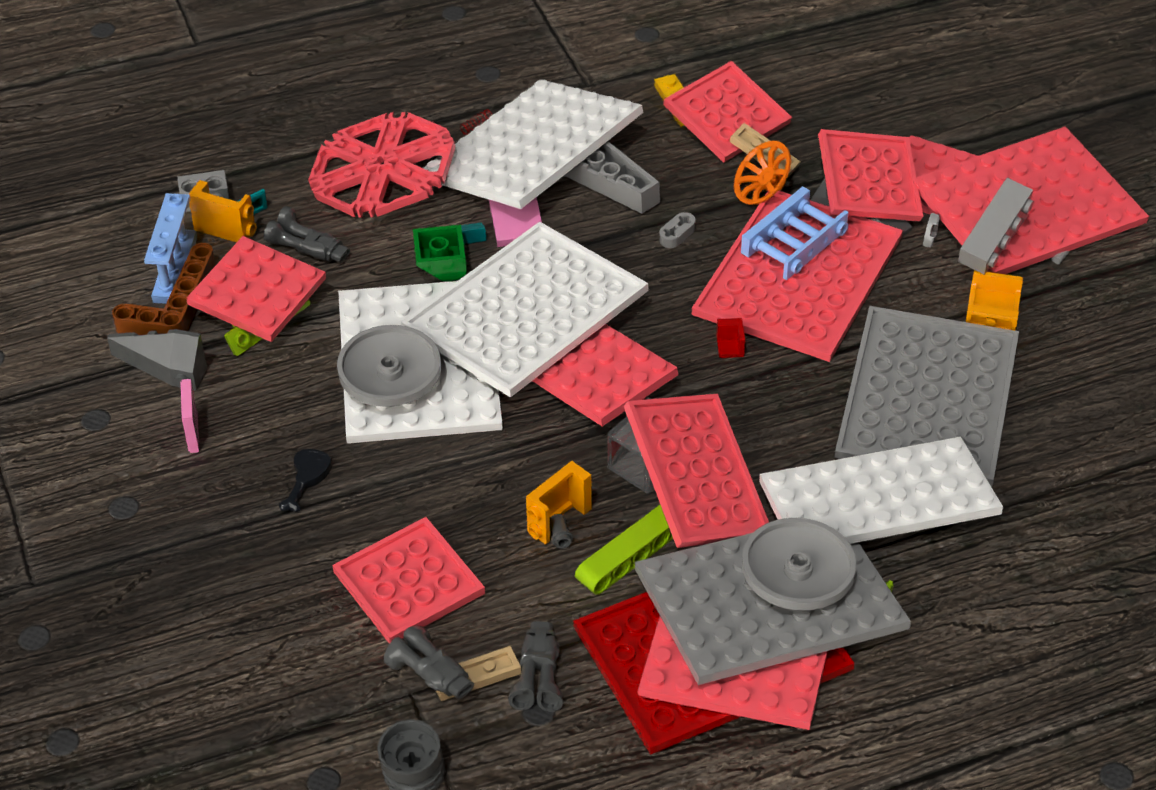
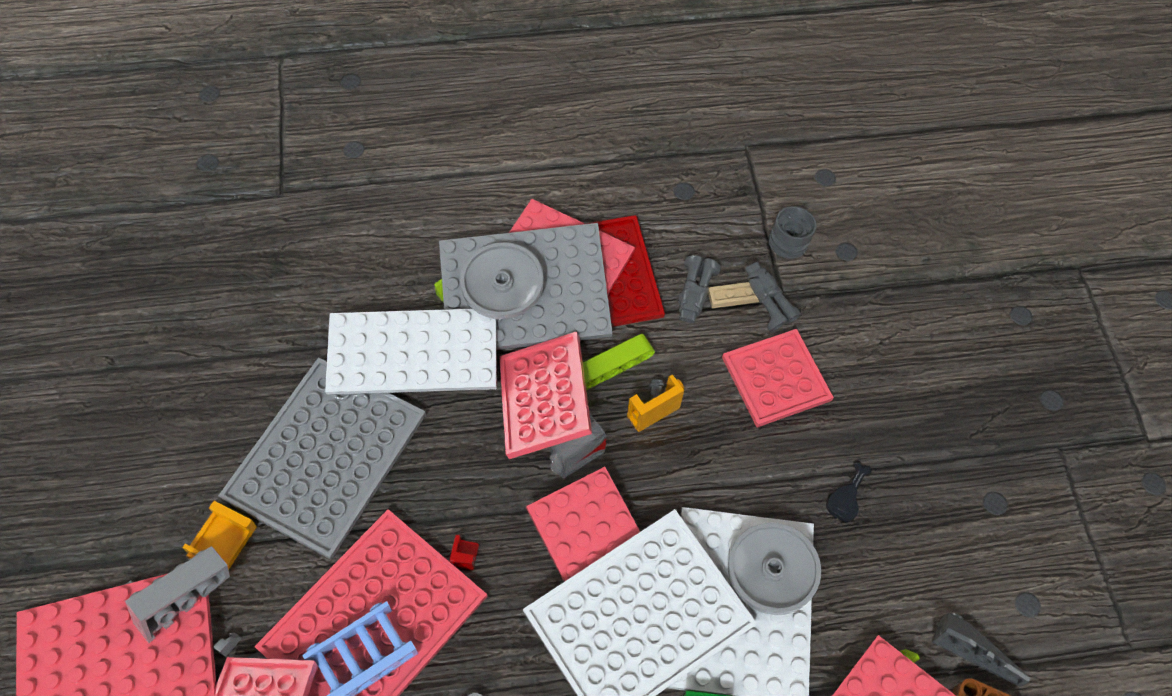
camera: 170 degrees left, 15 degrees up
(189, 416) = (948, 561): bright pink tile -> none

